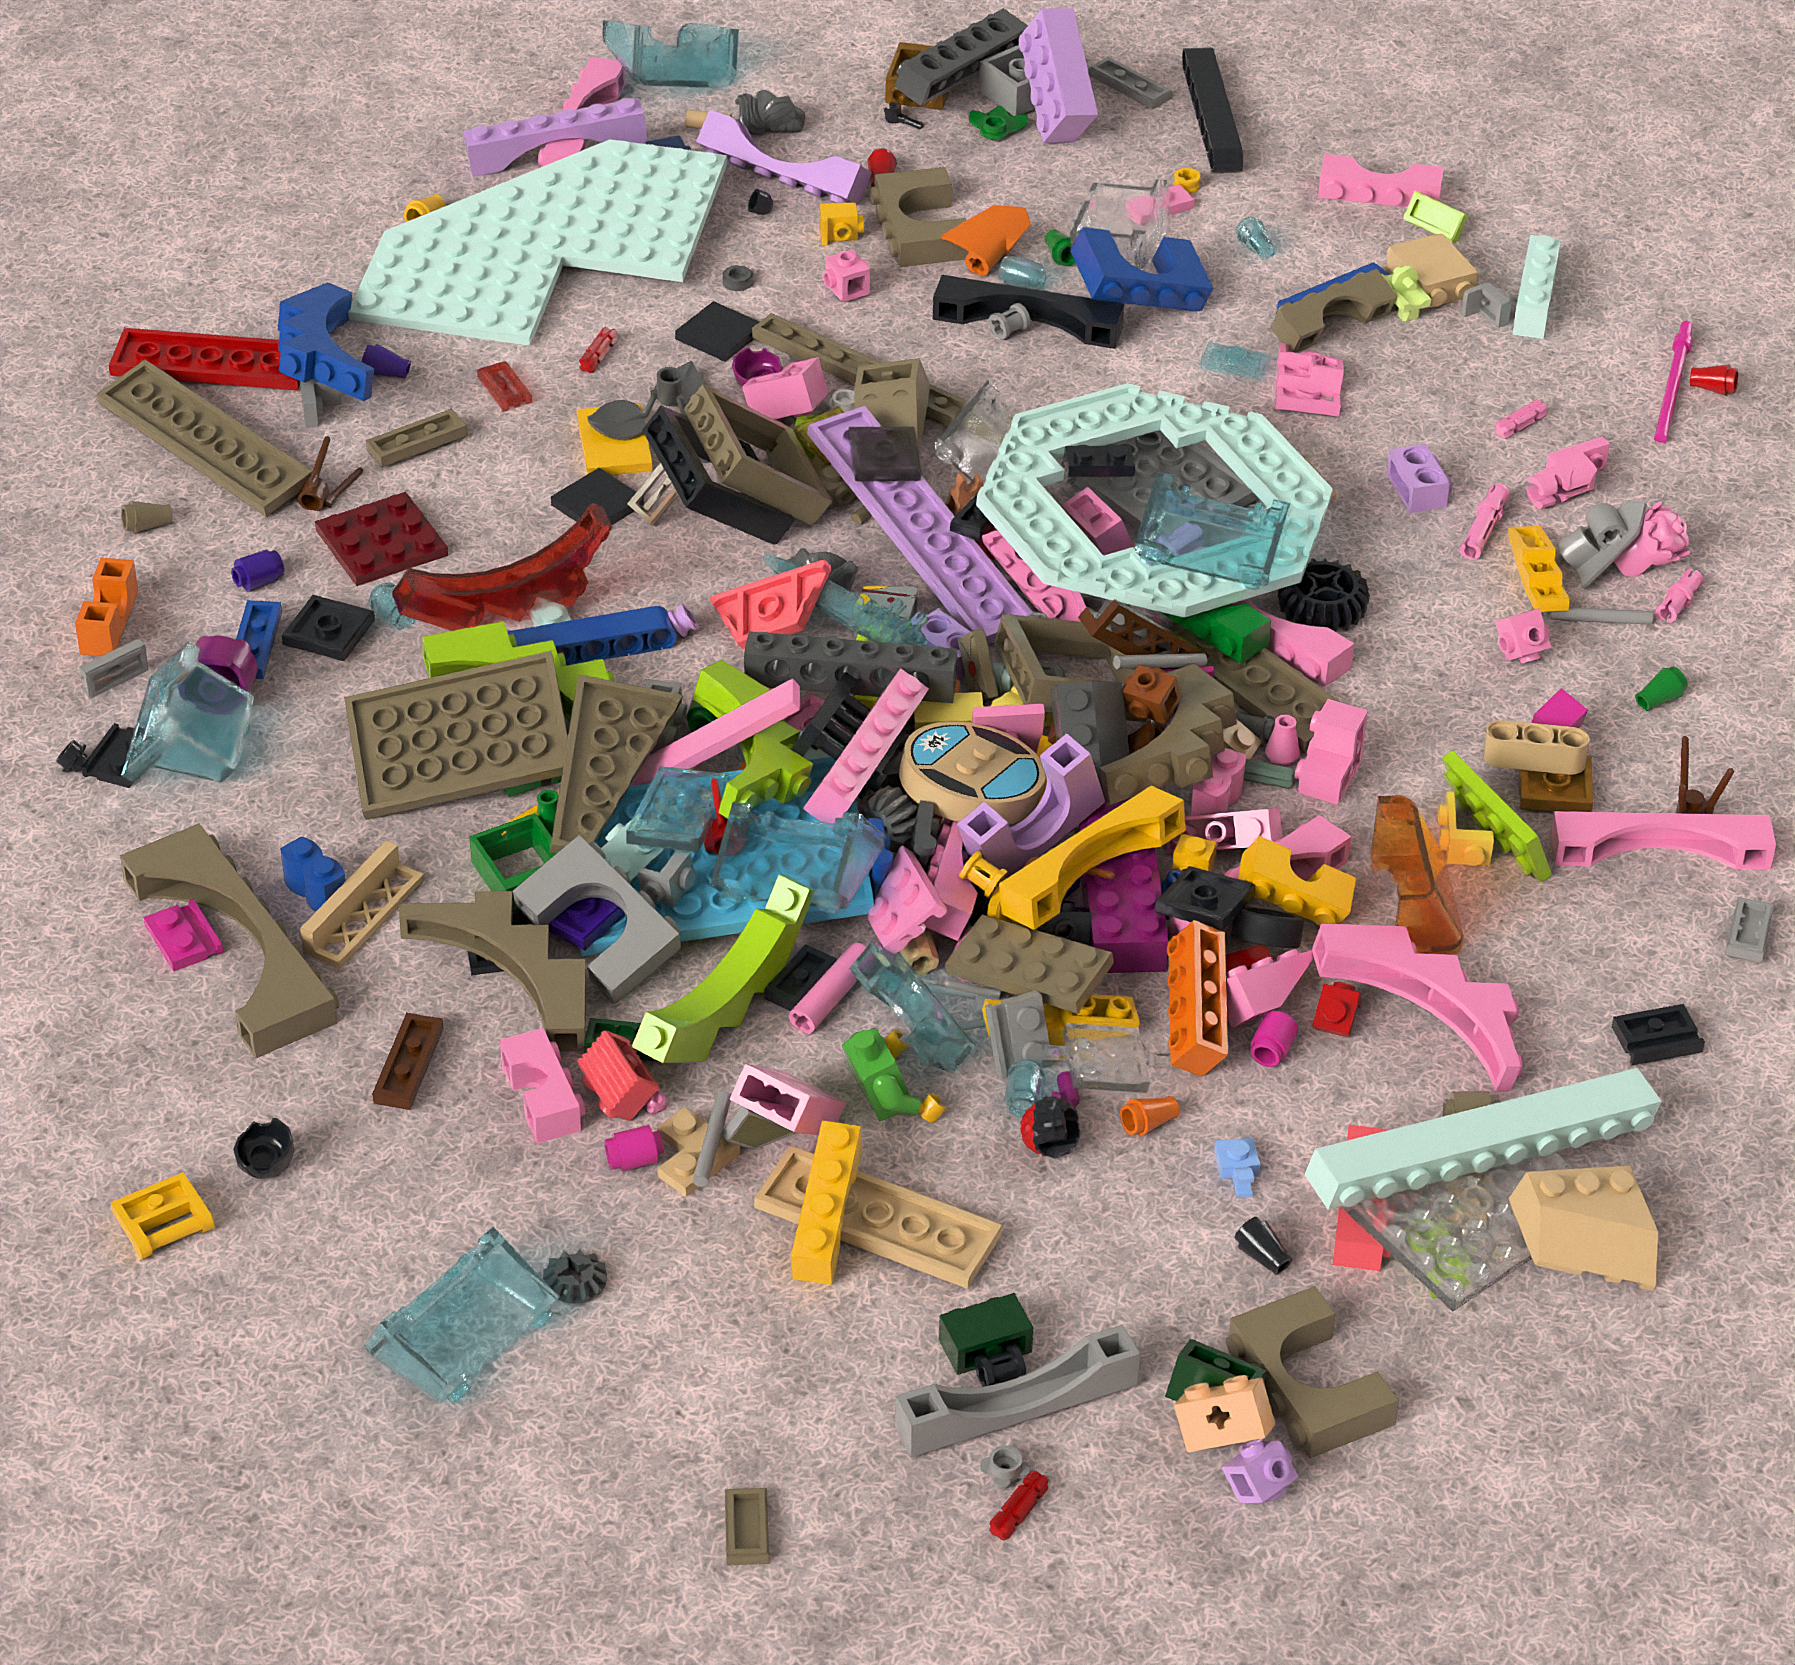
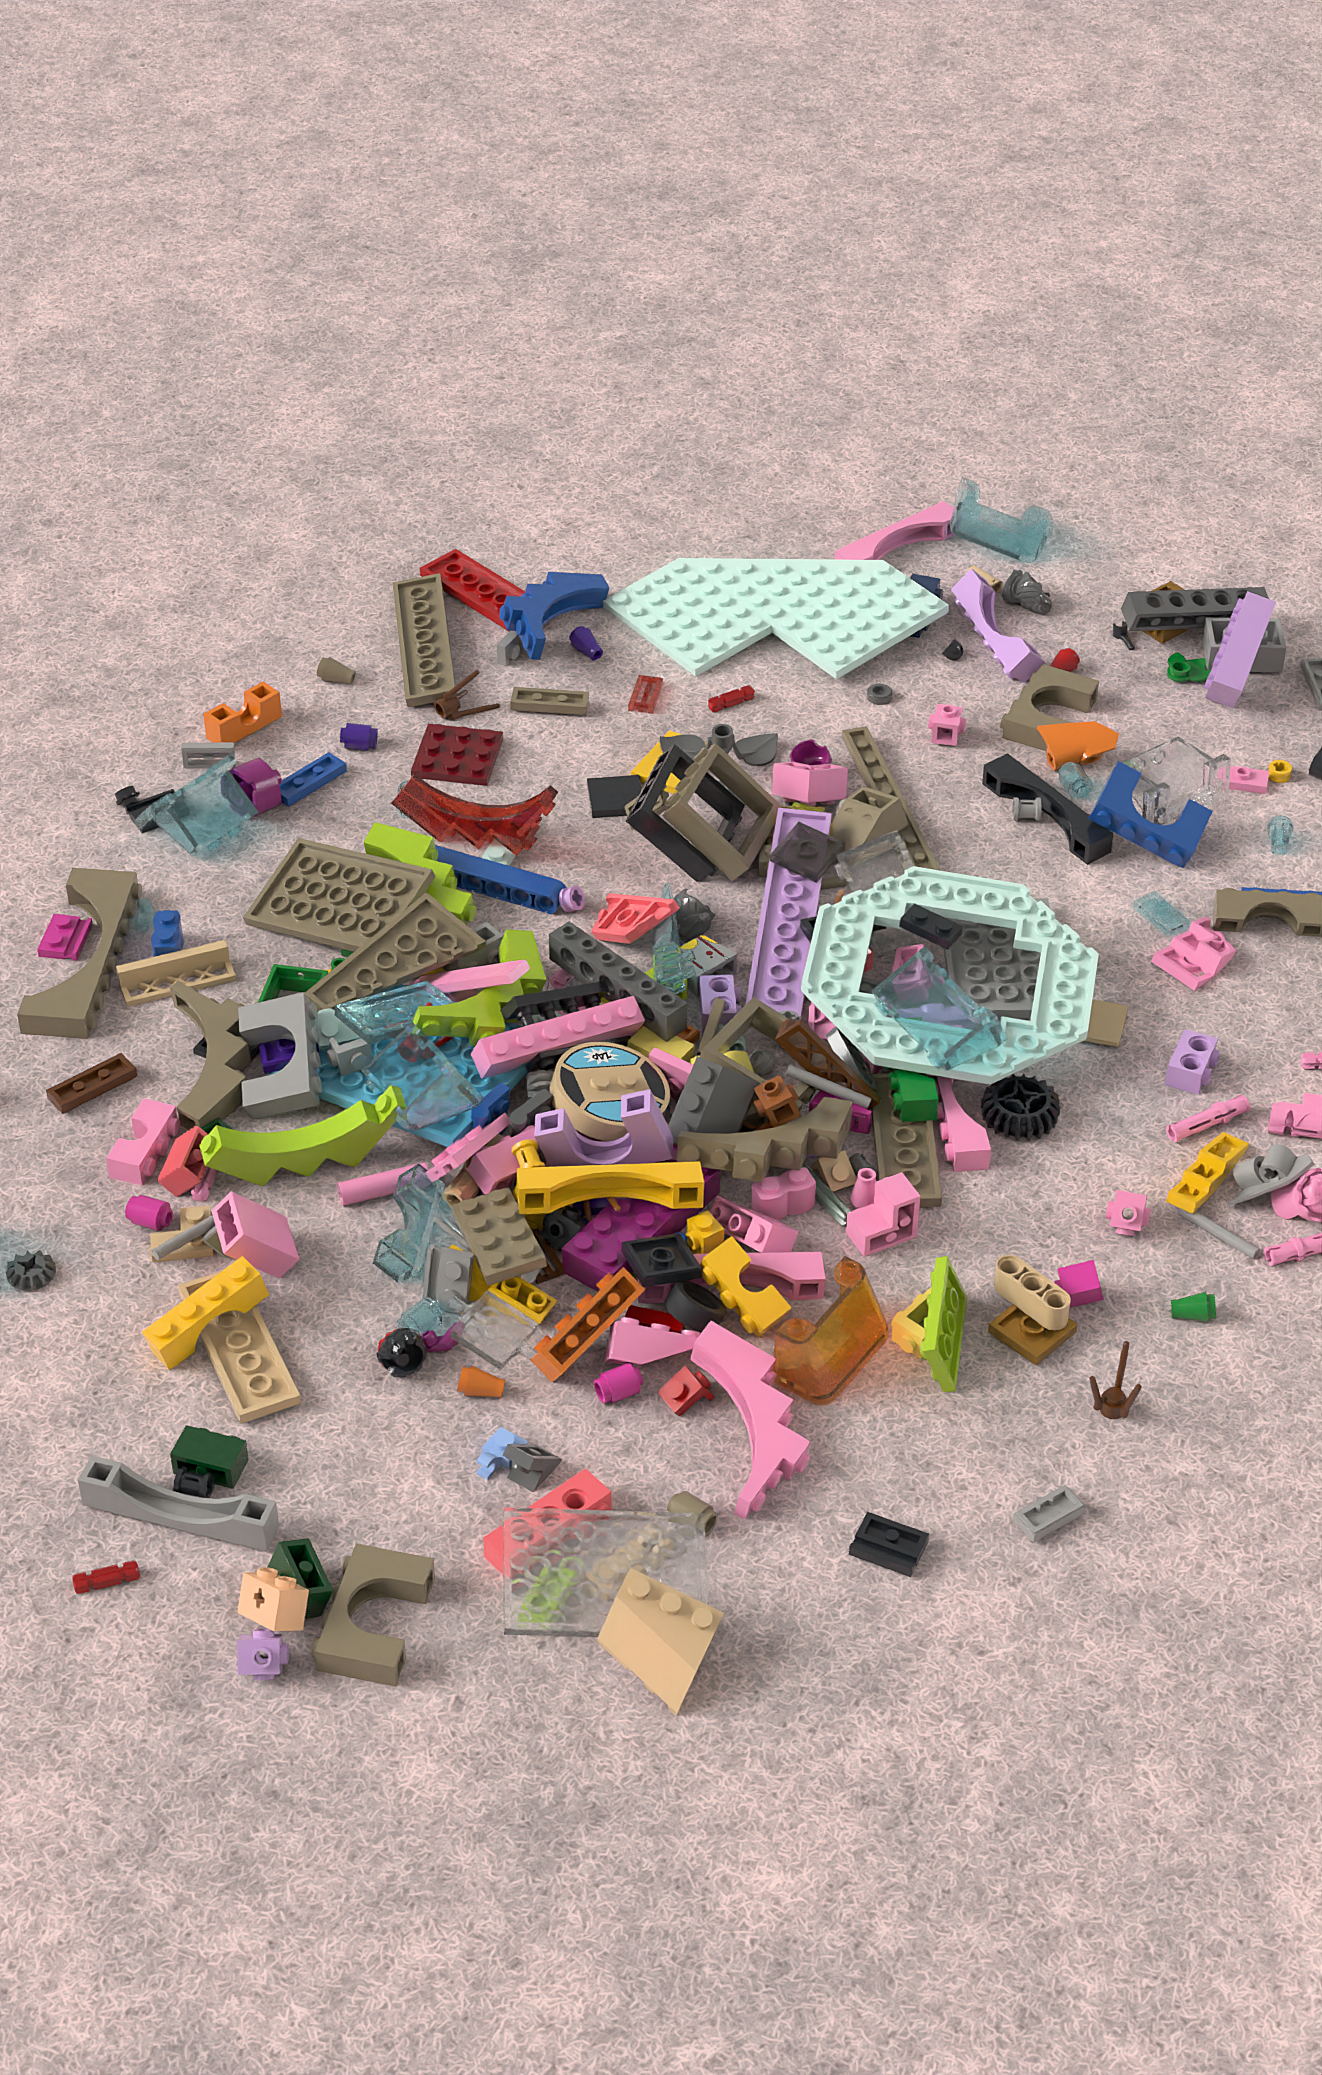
camera: 40 degrees right, 0 degrees up
(250, 865) = (146, 916): none -> clear light blue arm
(328, 627) = (358, 793): black plate -> none
(423, 206) = (728, 553): yellow cone -> none
(496, 146) = (901, 551): lavender arch -> none
(717, 331) = (823, 722): black tile -> none
(798, 977) = (371, 1163): black plate -> none
(840, 222) = (987, 687): yellow brick -> none
(879, 1077) = (336, 1252): bright green torso -> none
(1007, 1457) = (123, 1540): light grey plate -> none
(1262, 1244) = (447, 1513): black cone -> none
(1284, 1159) = (530, 1464): none -> dark grey slope
(1481, 1138) = (649, 1531): light aqua brick -> none
(1729, 838) = (1006, 1379): bright pink arch -> none

